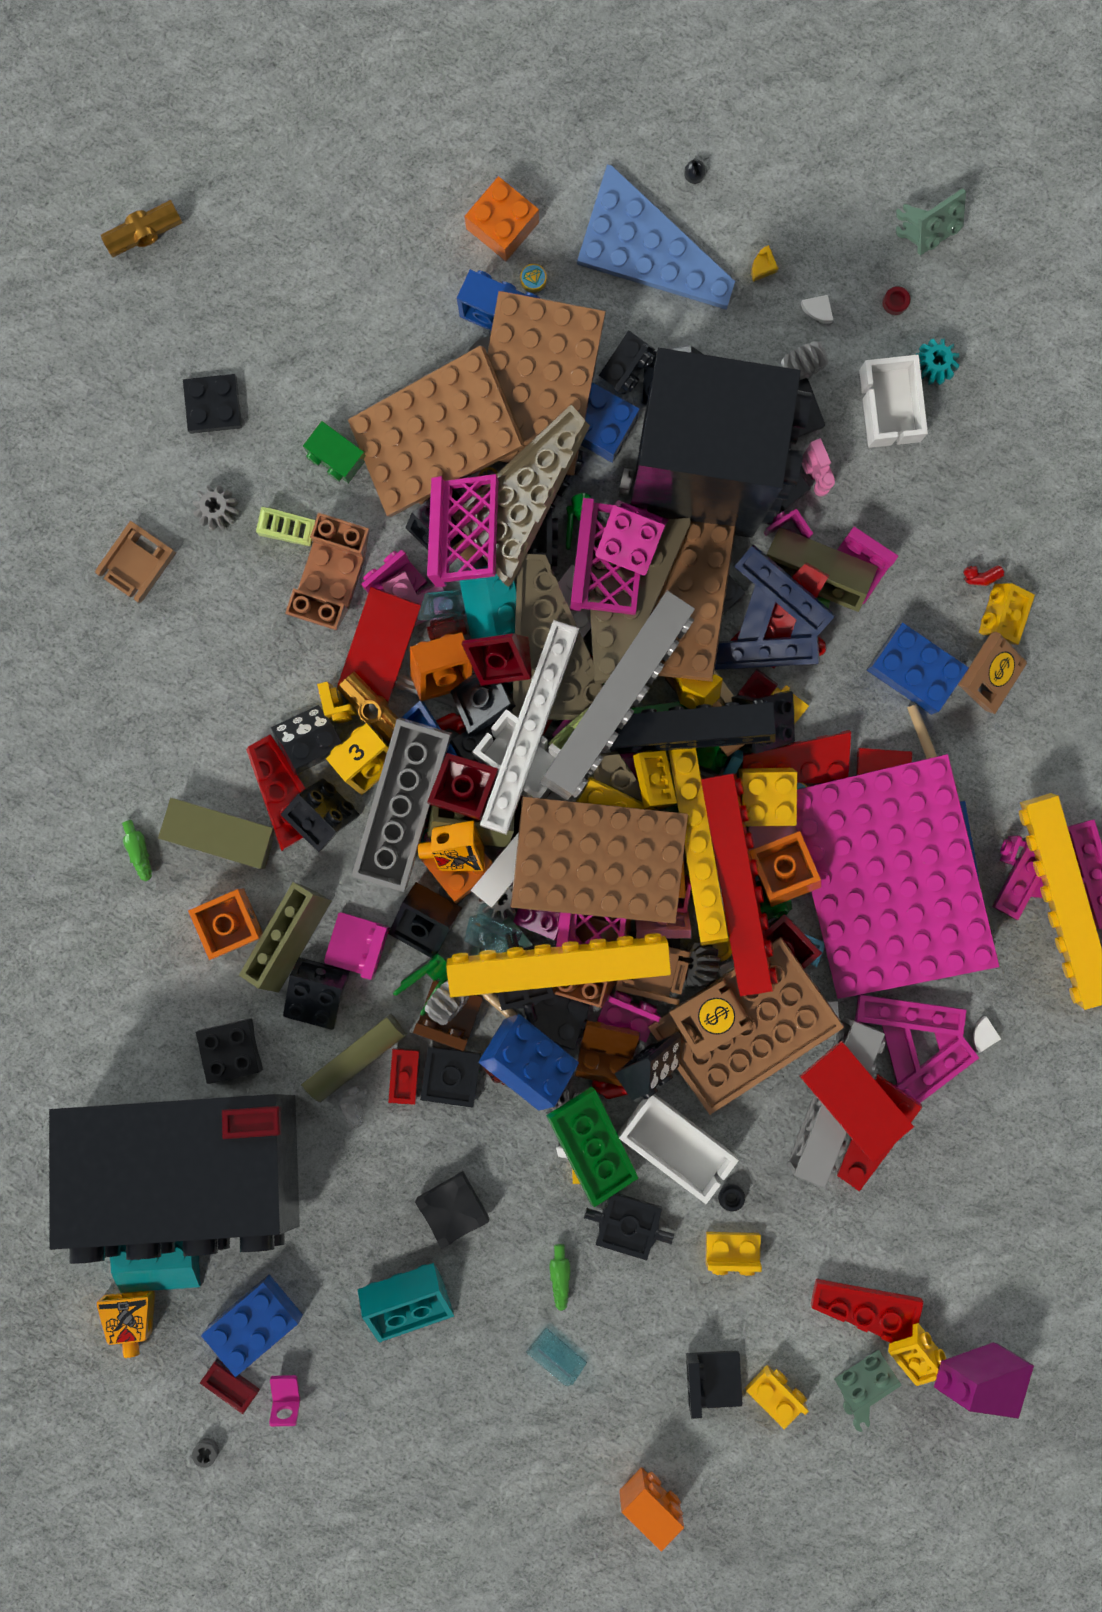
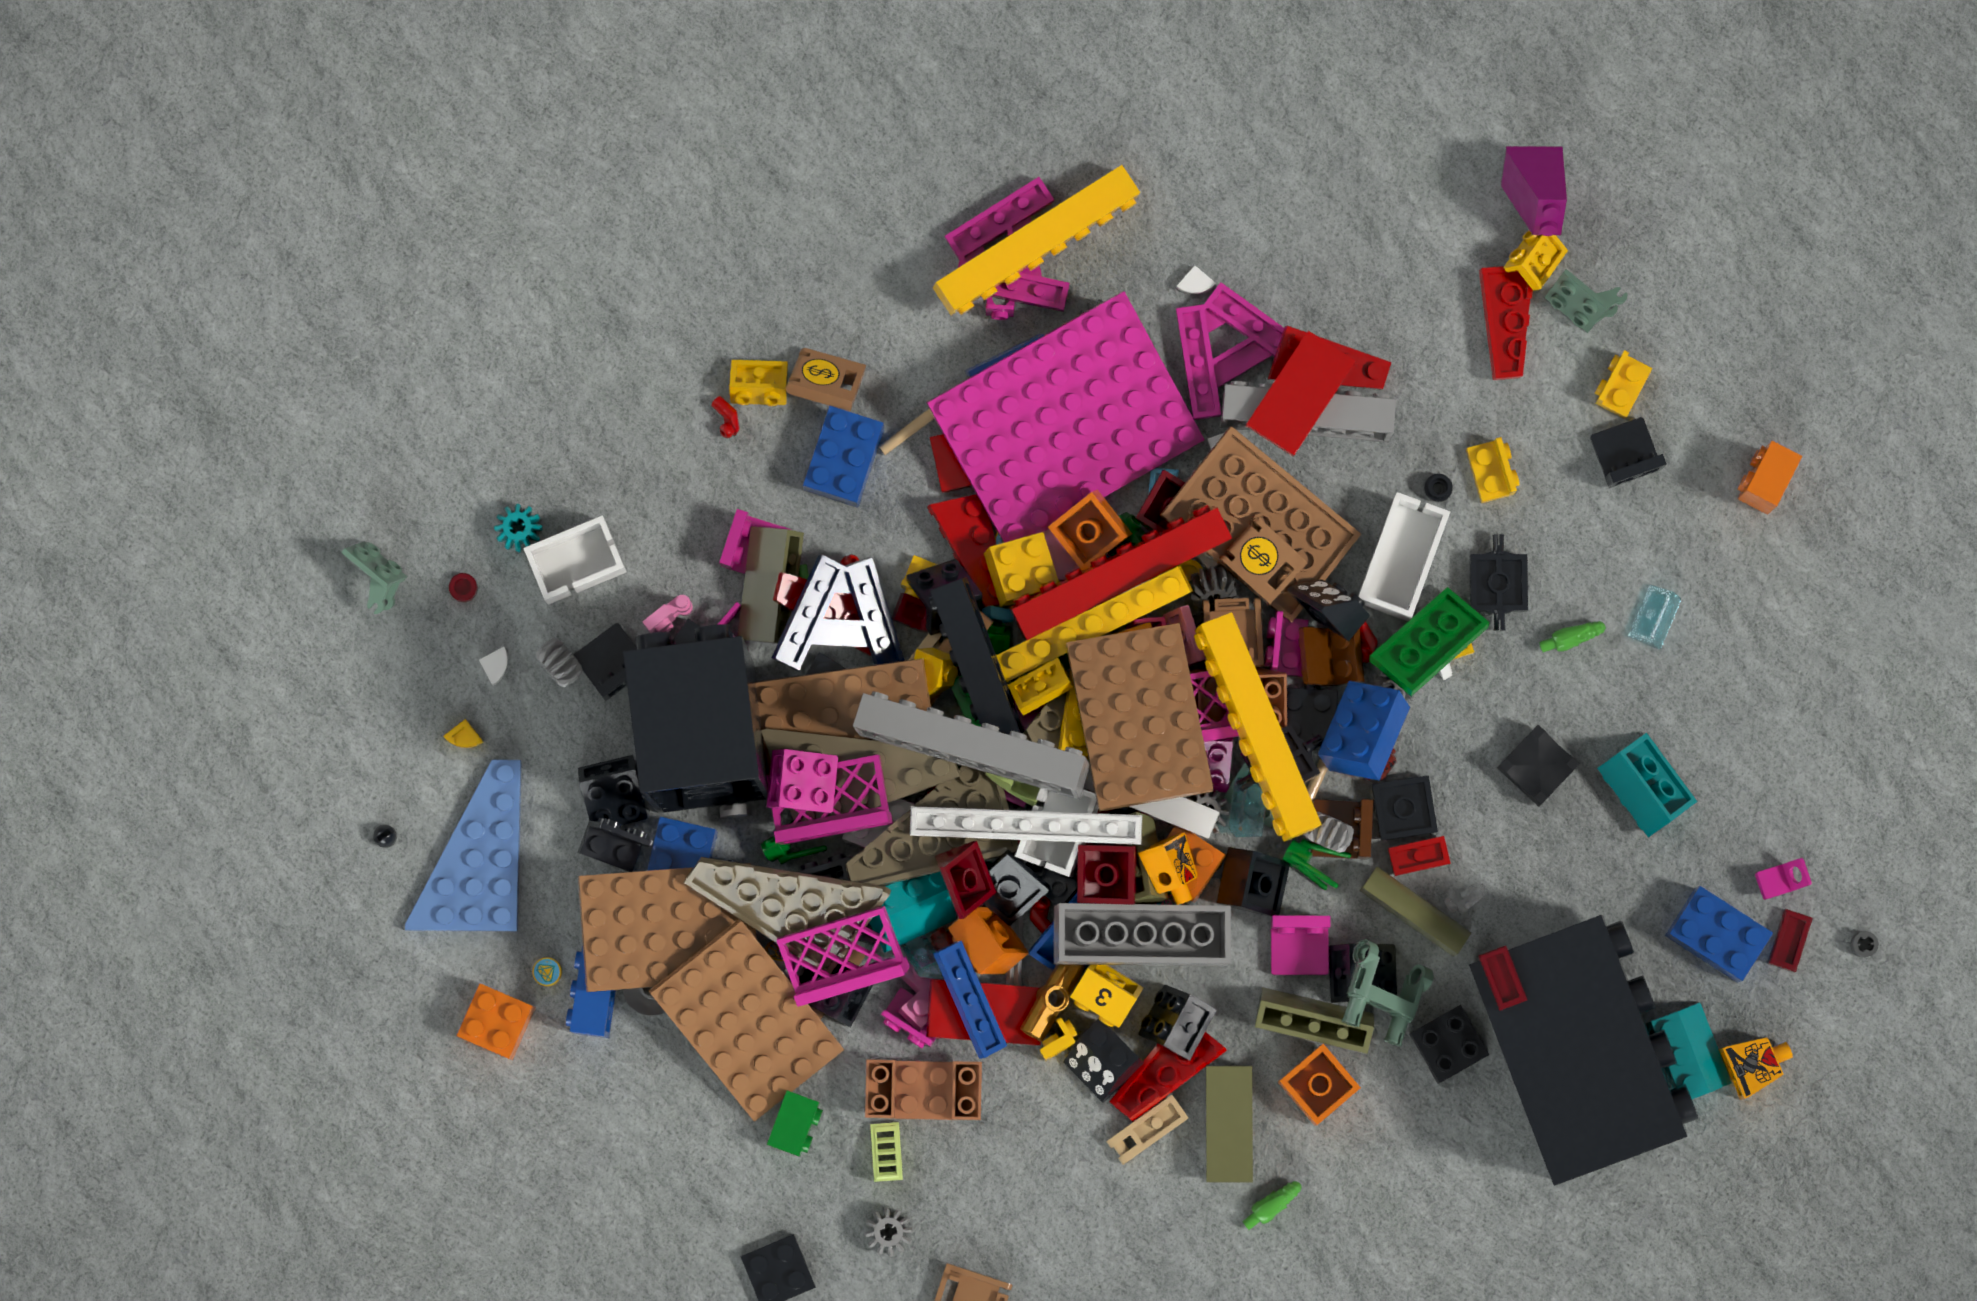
camera: 110 degrees left, 5 degrees down
(236, 762) = (1148, 1128): none -> tan plate
(291, 987) = (1362, 992): none -> sand green connector
(391, 632) = (970, 999): none -> blue plate

